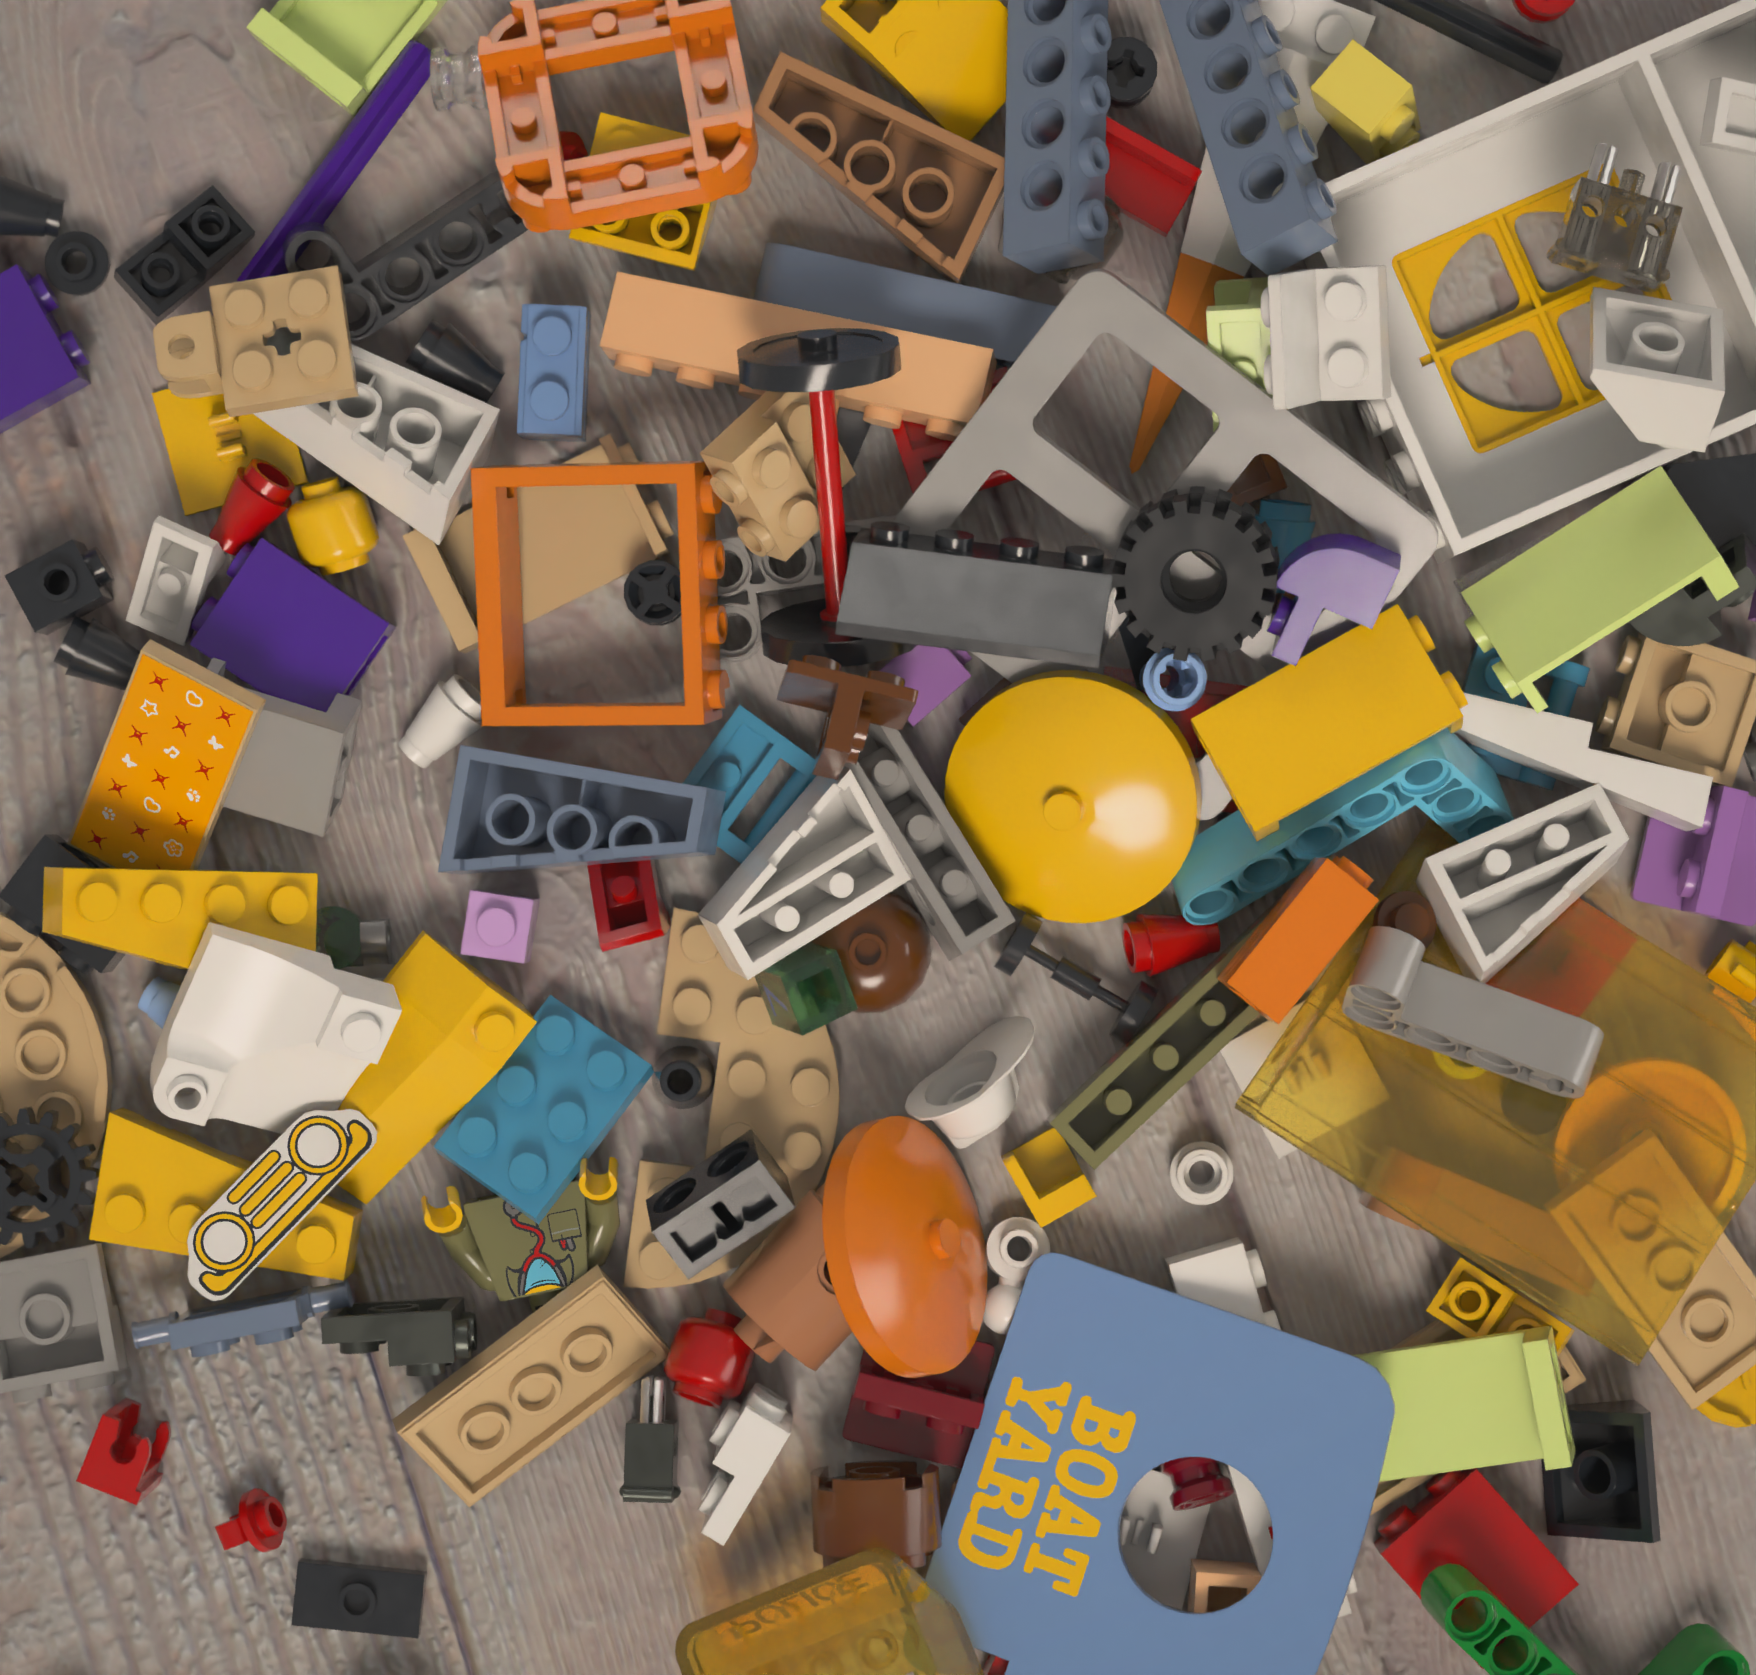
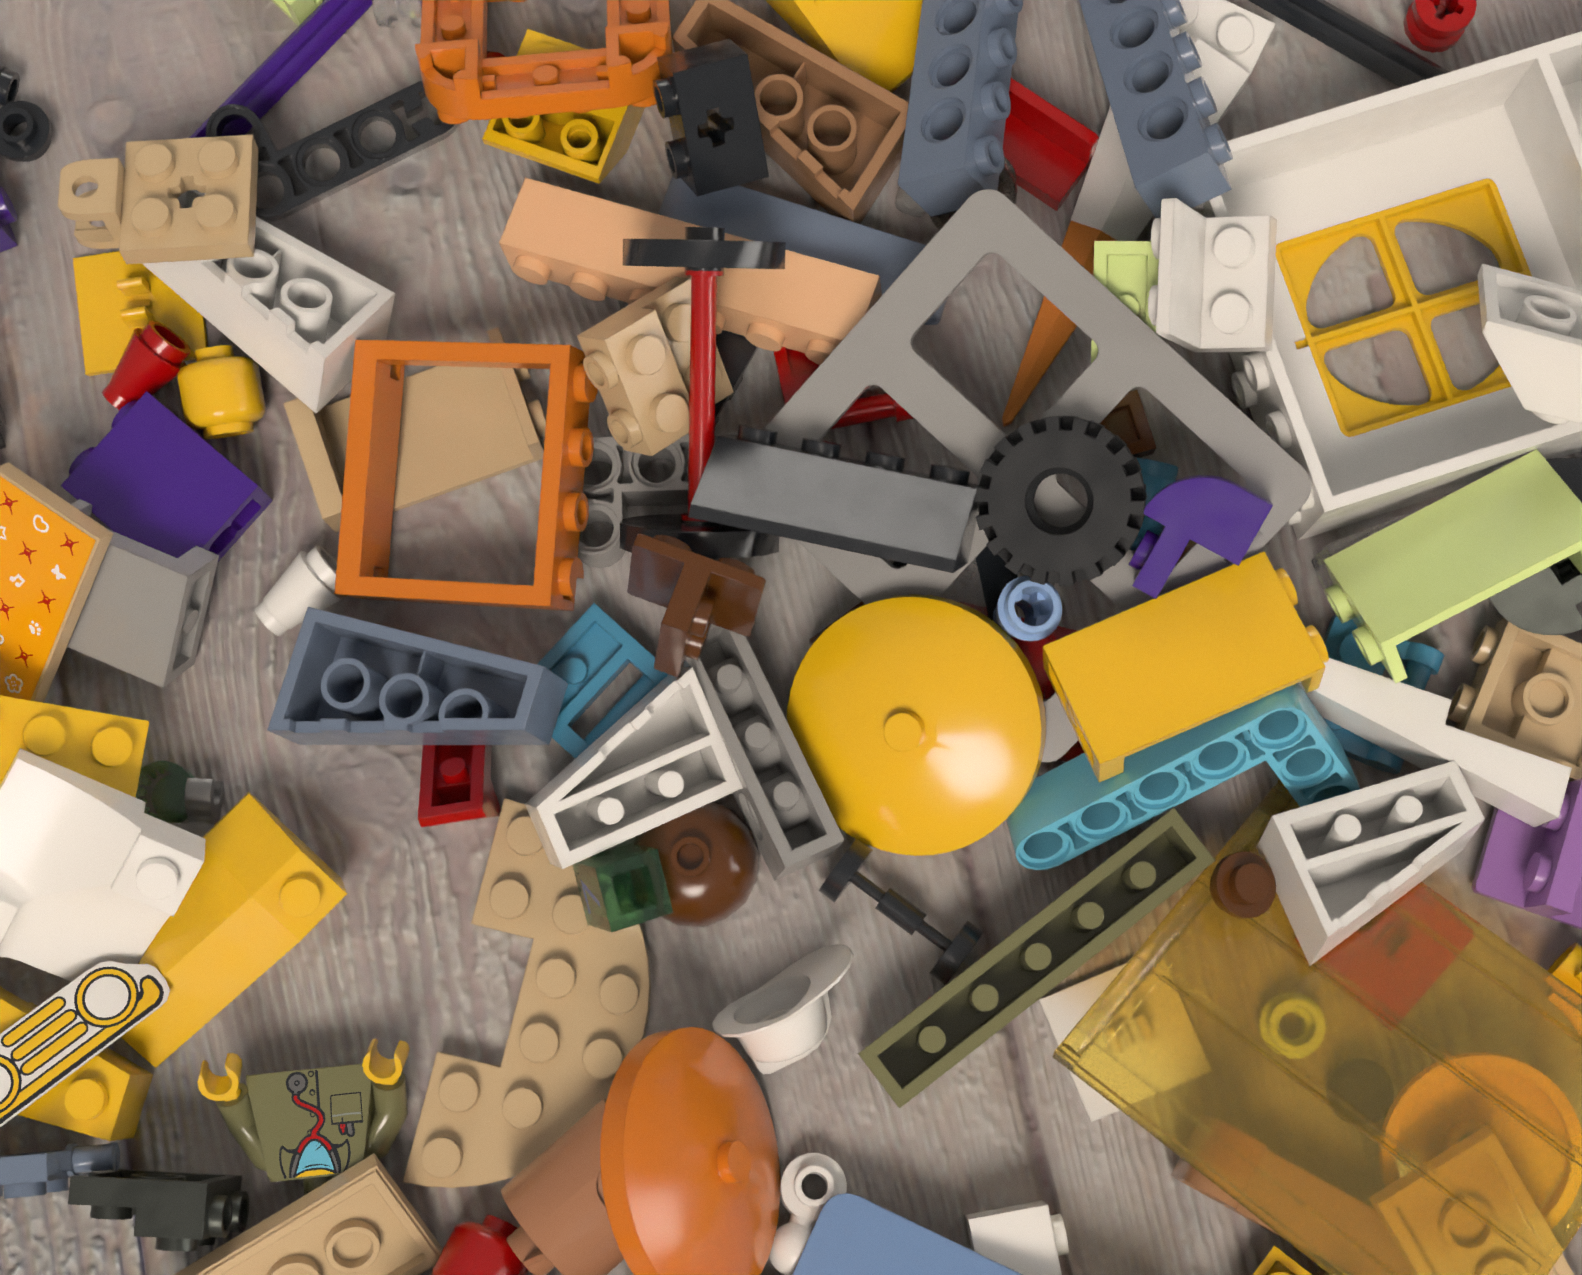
camera: 10 degrees right, 10 degrees down
(173, 580) = (58, 422): white slope -> none
(184, 255) = (134, 114): black slope -> none
(453, 361) = (361, 249): black cone -> none
(500, 926) = (327, 796): lavender brick -> none
(545, 1110) = (344, 987): dark azure plate -> none
(554, 372) = (454, 270): medium blue brick -> none
(648, 587) = (518, 479): black wheel -> none
(696, 1064) = (507, 976): black cone -> none
(719, 1204) = (506, 1103): black brick -> none
(806, 202) = (732, 145): none -> black brick
(933, 673) = (790, 593): medium lavender brick -> none
(1048, 1176) = (852, 1114): yellow panel -> none
(1126, 86) = (1034, 68): black wheel -> none
(1166, 941) = (996, 884): red cone -> none
(1201, 1193) = (1031, 1133): white plate -> none
(1300, 936) = (1137, 879): orange brick -> none
(1367, 104) = (1261, 82): light yellow slope -> none
(1468, 1018) = (1305, 987): light grey beam -> none
(1605, 247) = (1513, 207): clear smoke piece -> none

